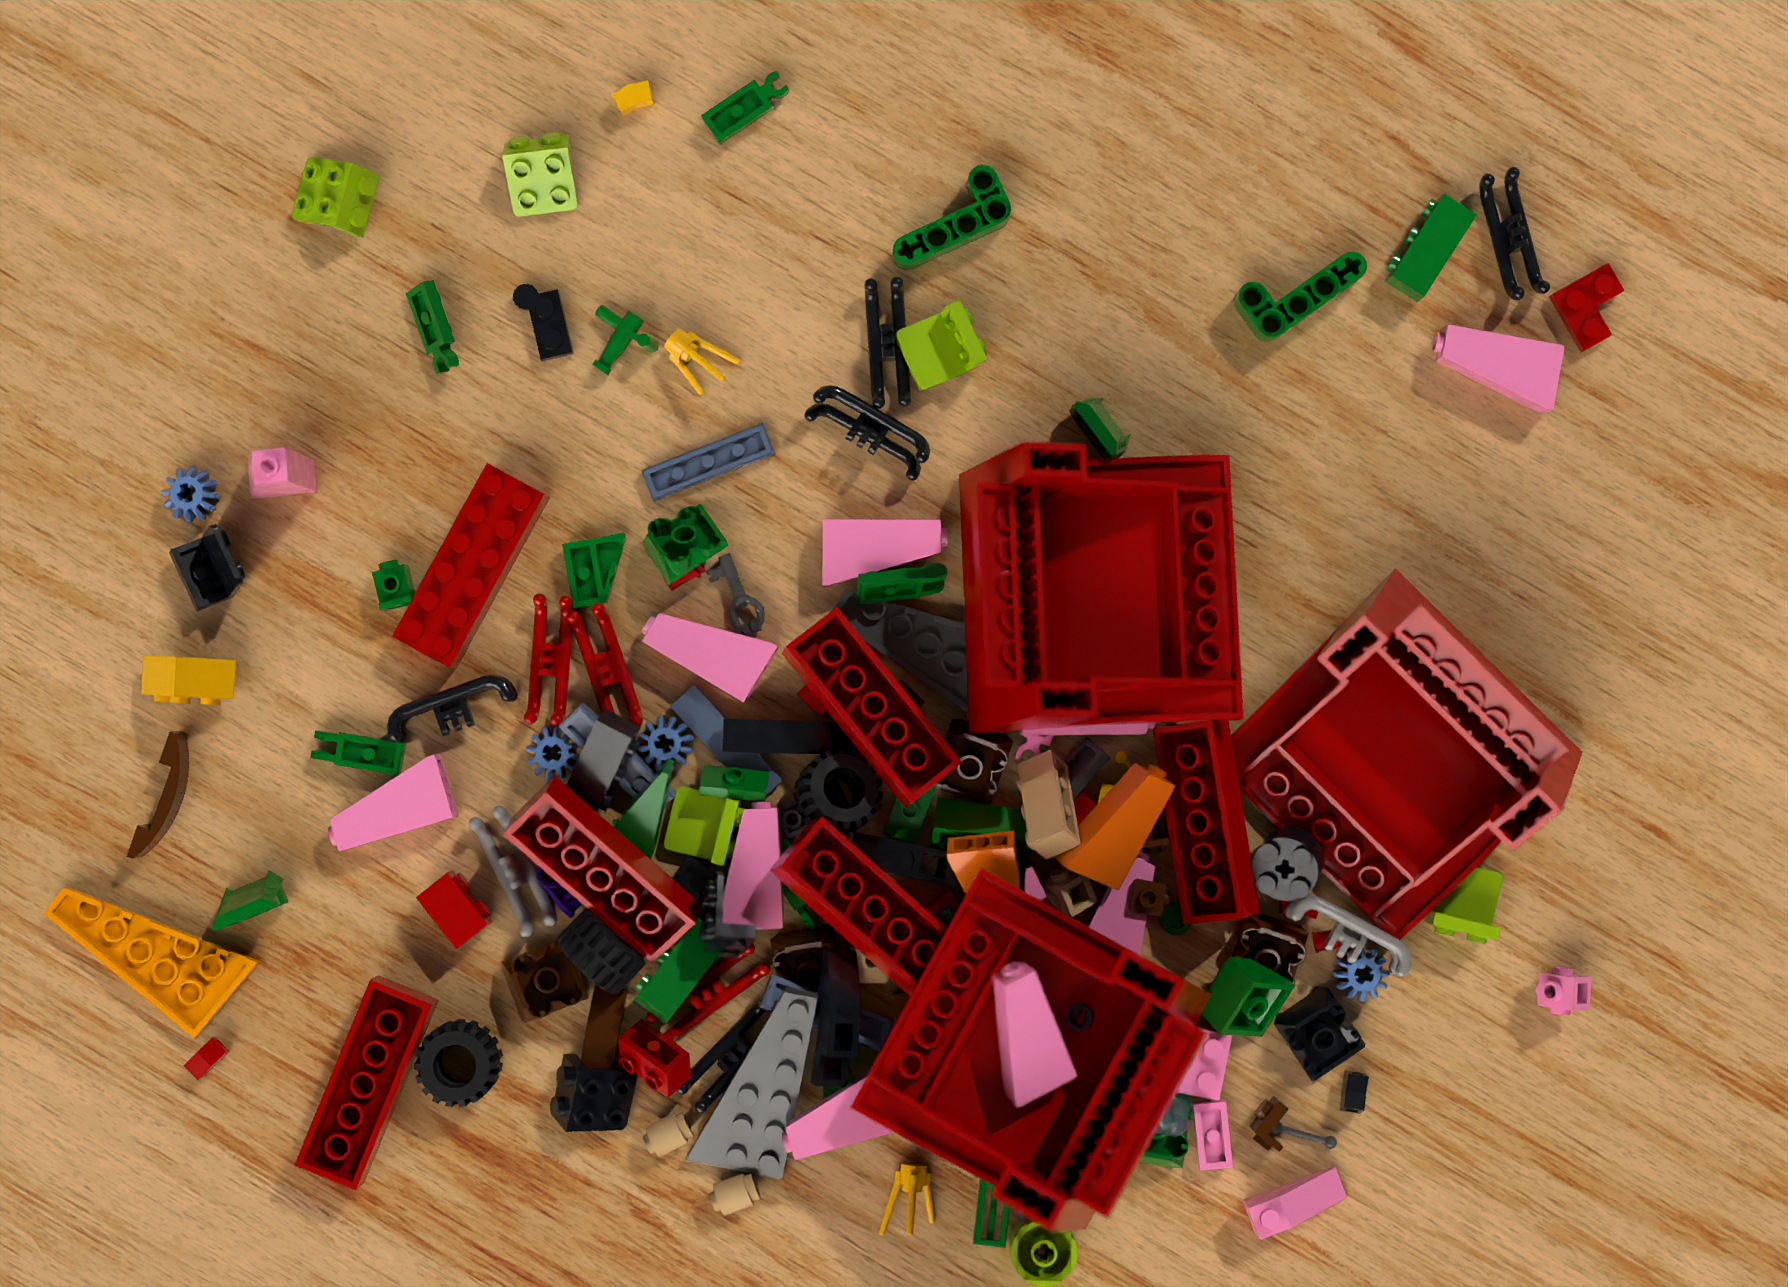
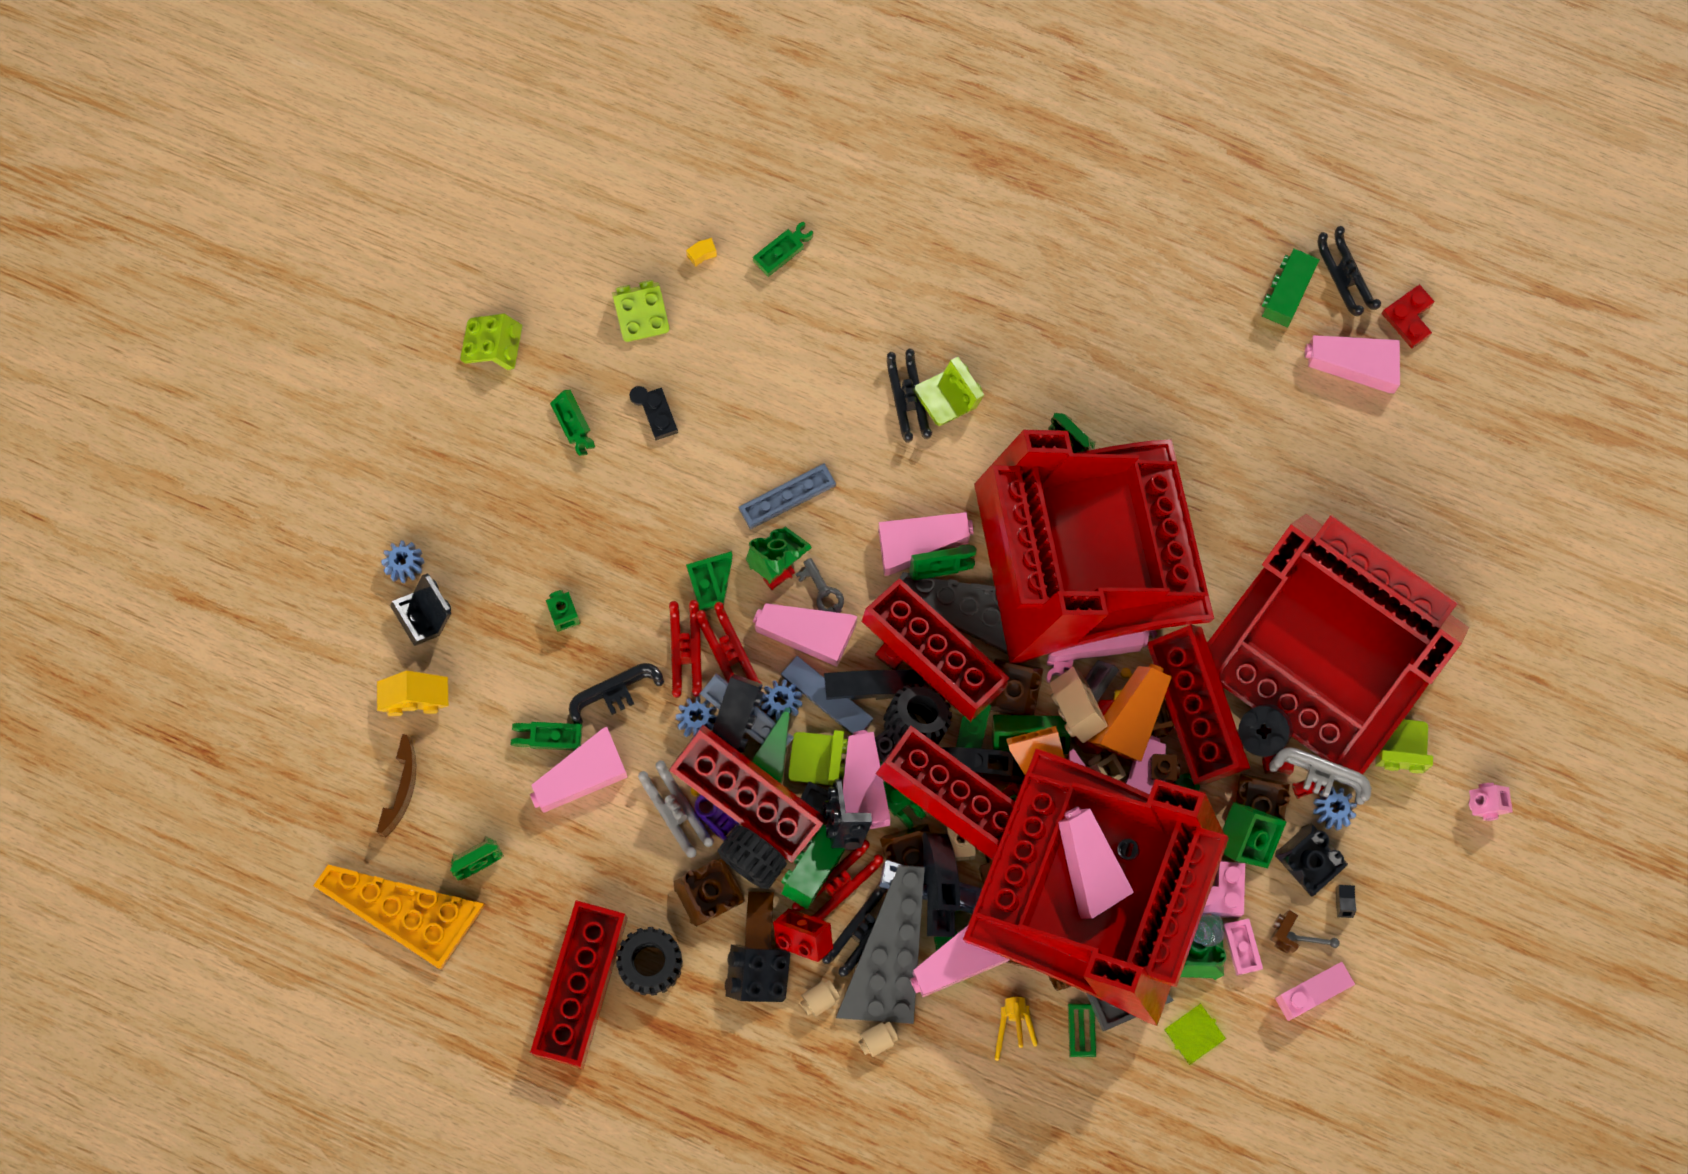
camera: 10 degrees left, 15 degrees down
(206, 1058) = (450, 984): red piece -> none
(280, 473) = (468, 533): bright pink slope -> none
(455, 908) = (634, 842): red brick -> none
(470, 566) = (619, 588): red brick -> none
(624, 333) = (714, 411): green piece -> none
(683, 347) = (760, 416): yellow plant -> none
(734, 783) = (837, 720): green plate -> none
(871, 427) = (905, 455): black piece -> none
(948, 225) = (941, 311): green beam -> none
(1043, 1269) = (1134, 1037): lime brick -> none
(1134, 1233) = (1195, 1034): none -> clear neon green piece
(1305, 293) = (1205, 328): green beam -> none

